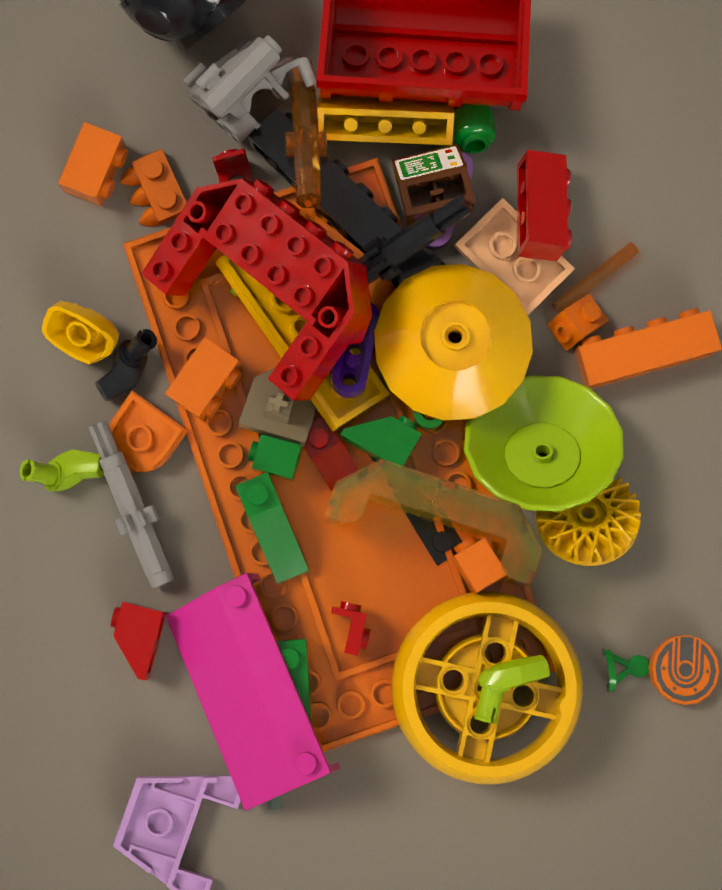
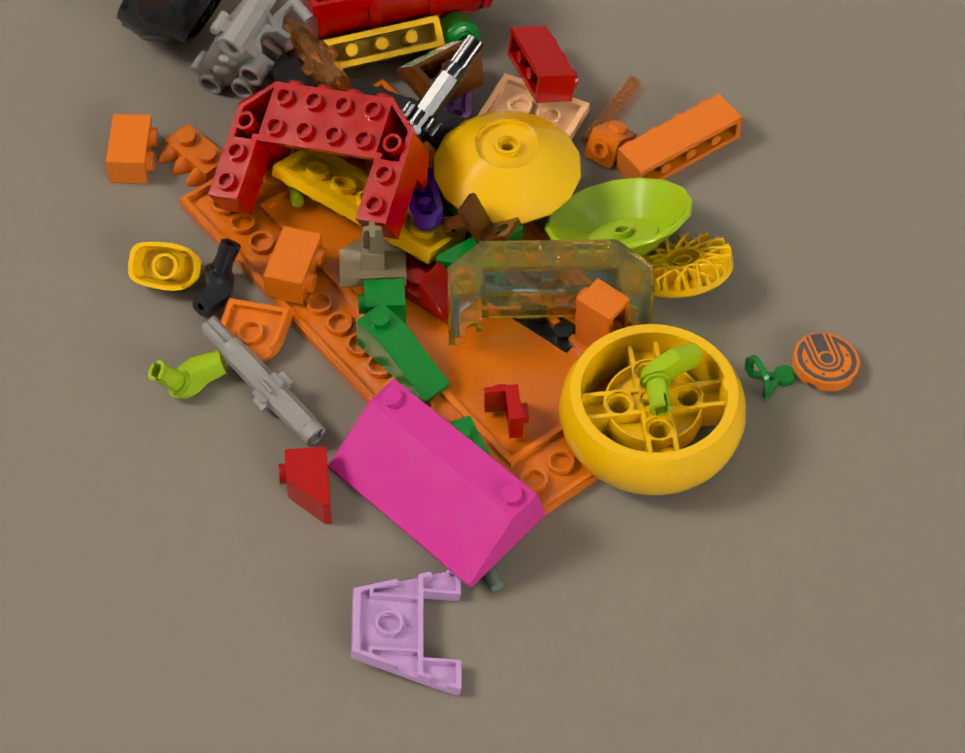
camera: 20 degrees left, 30 degrees down
(397, 415) = (475, 220): none -> reddish brown bracket

